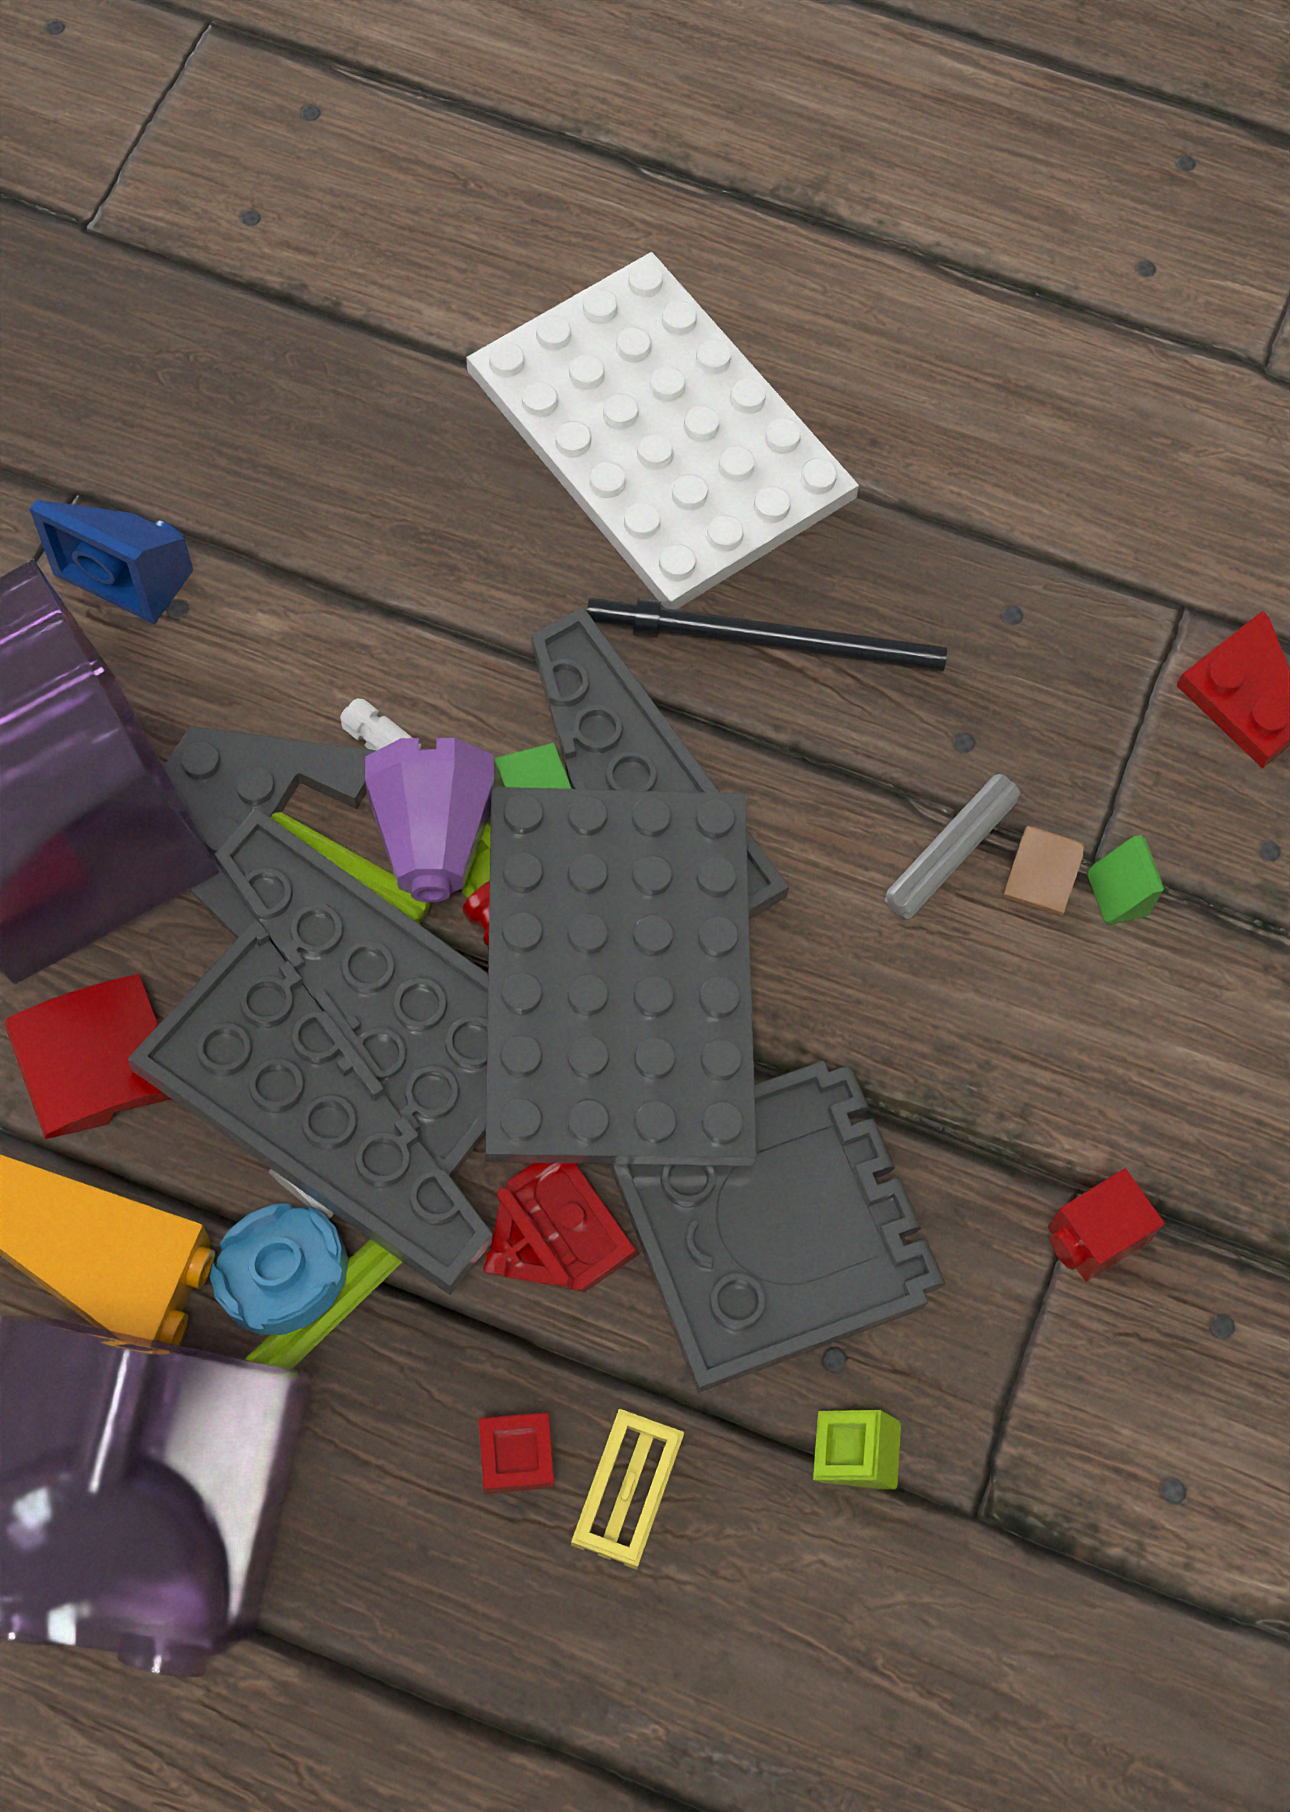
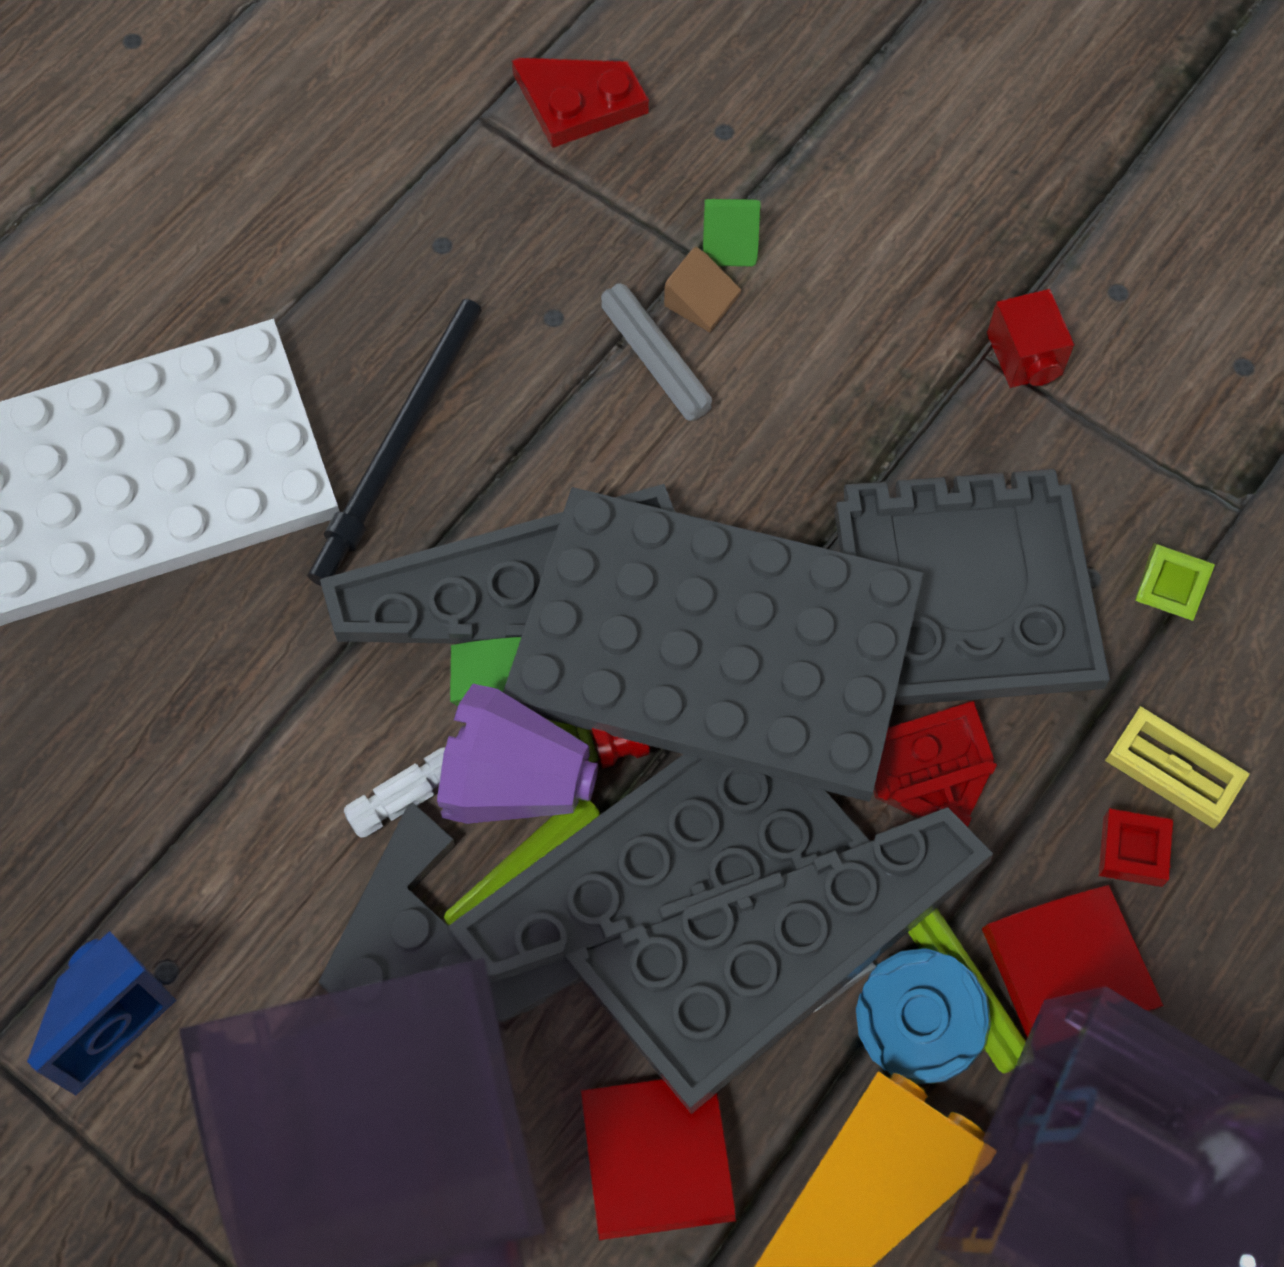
camera: 70 degrees left, 0 degrees up
(374, 1411) = (1069, 950): none -> red slope

